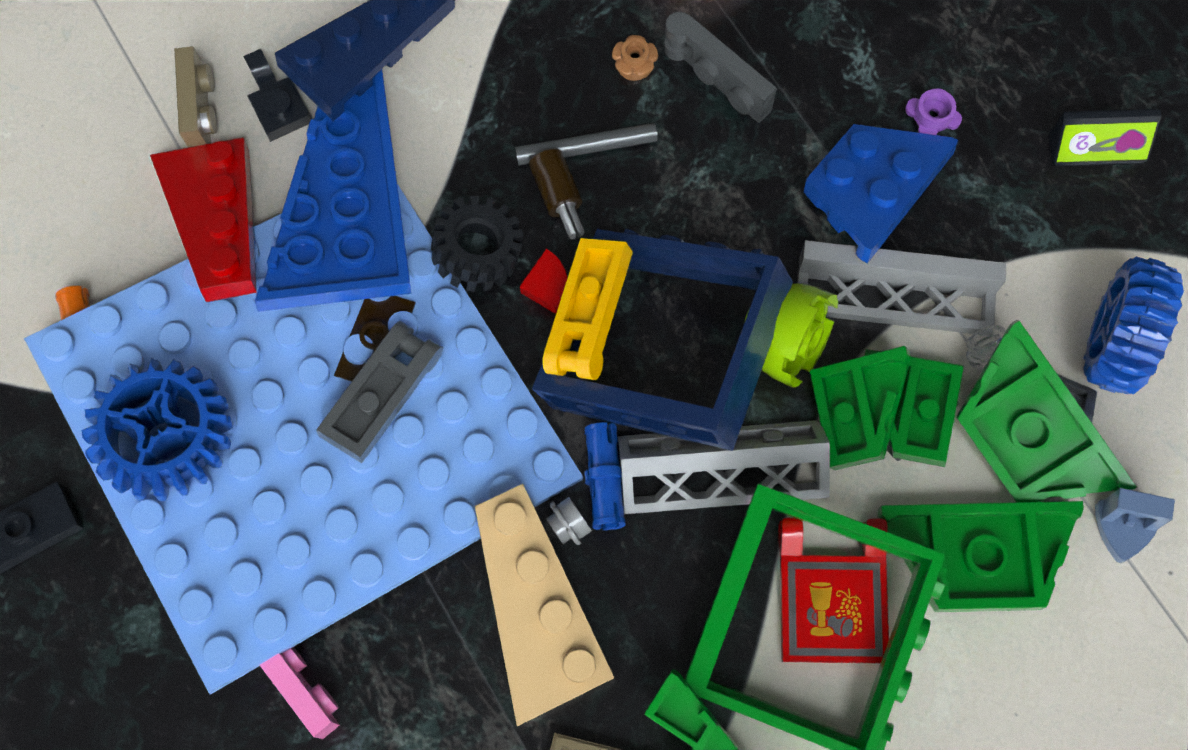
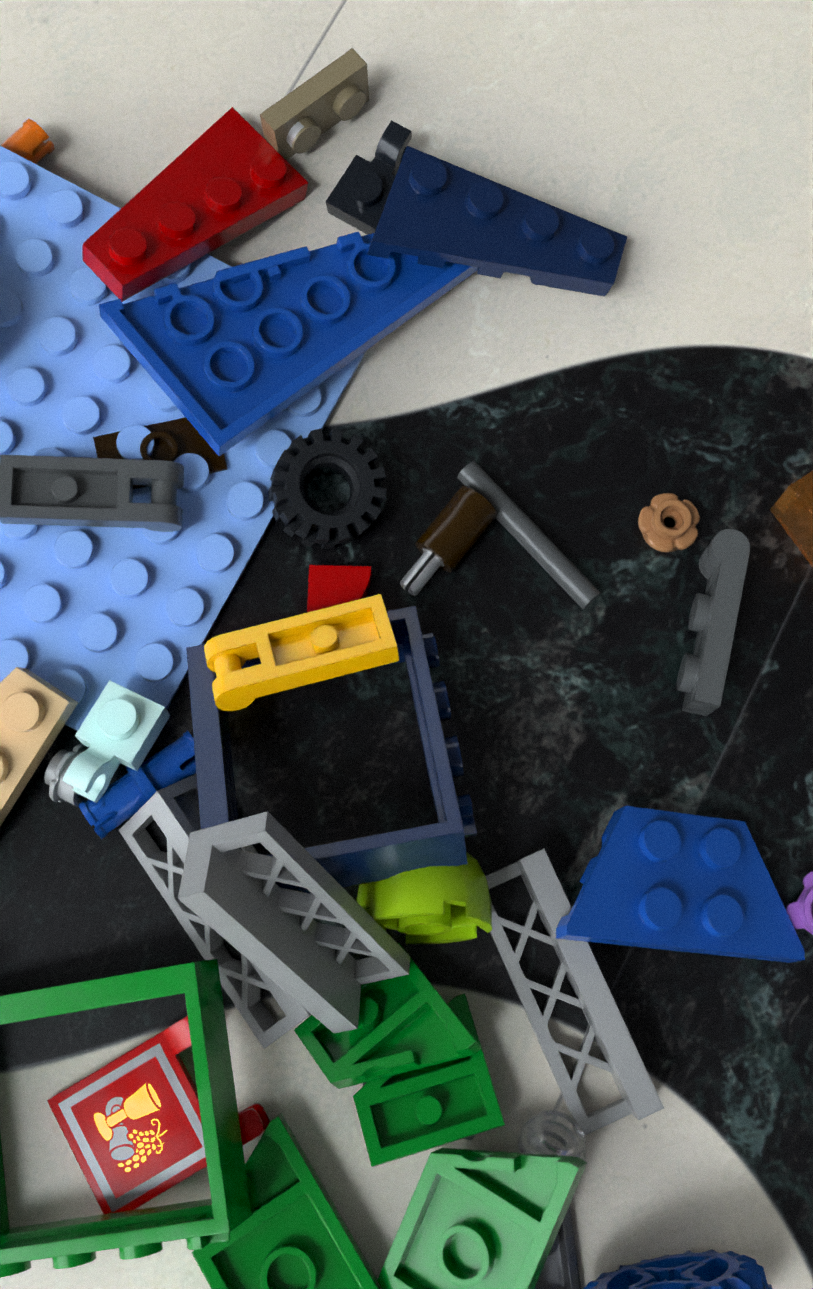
camera: 60 degrees right, 5 degrees up
(562, 467) = (116, 731): none -> light aqua plate
(763, 403) = (276, 925): none -> light grey fence

